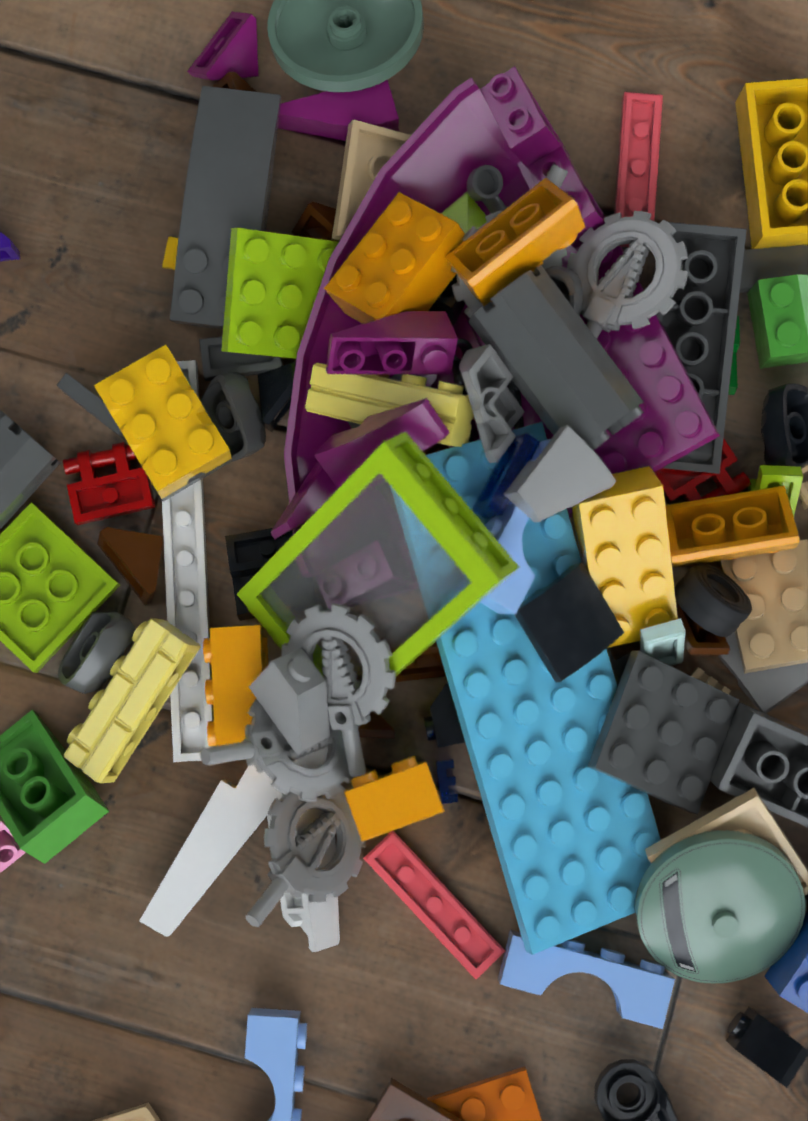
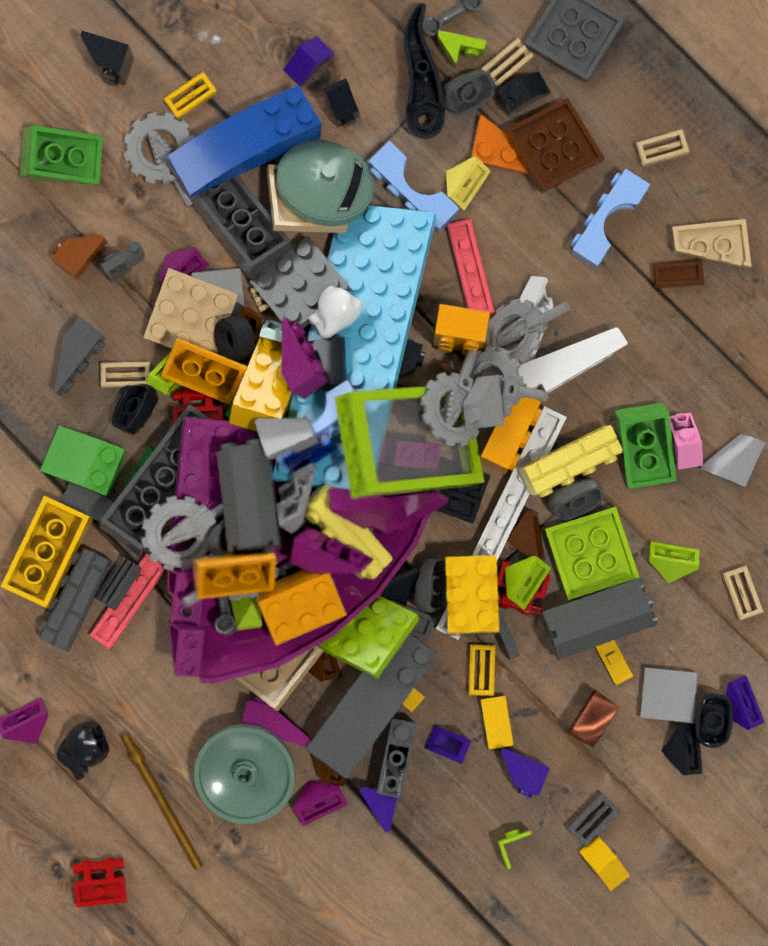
camera: 150 degrees left, 0 degrees up
(44, 285) = (497, 722): none -> yellow tile
(87, 314) = (481, 691): none -> yellow tile
(89, 216) = (448, 744): none -> dark purple slope
(106, 492) = (524, 579): none -> lime slope
(125, 1072) = (678, 274): none -> reddish brown tile
(142, 90) = (381, 805): none -> dark purple slope
(151, 157) = (396, 758): none -> dark grey slope
(446, 780) = (428, 325): clear blue tile -> none
(515, 1033) = (465, 180): none -> light yellow slope
(592, 713) = (335, 311): none -> white piece
(600, 603) = (299, 366): none -> magenta slope
(665, 181) = (118, 583): none -> dark grey tile
(710, 128) = (75, 600): none -> dark grey brick

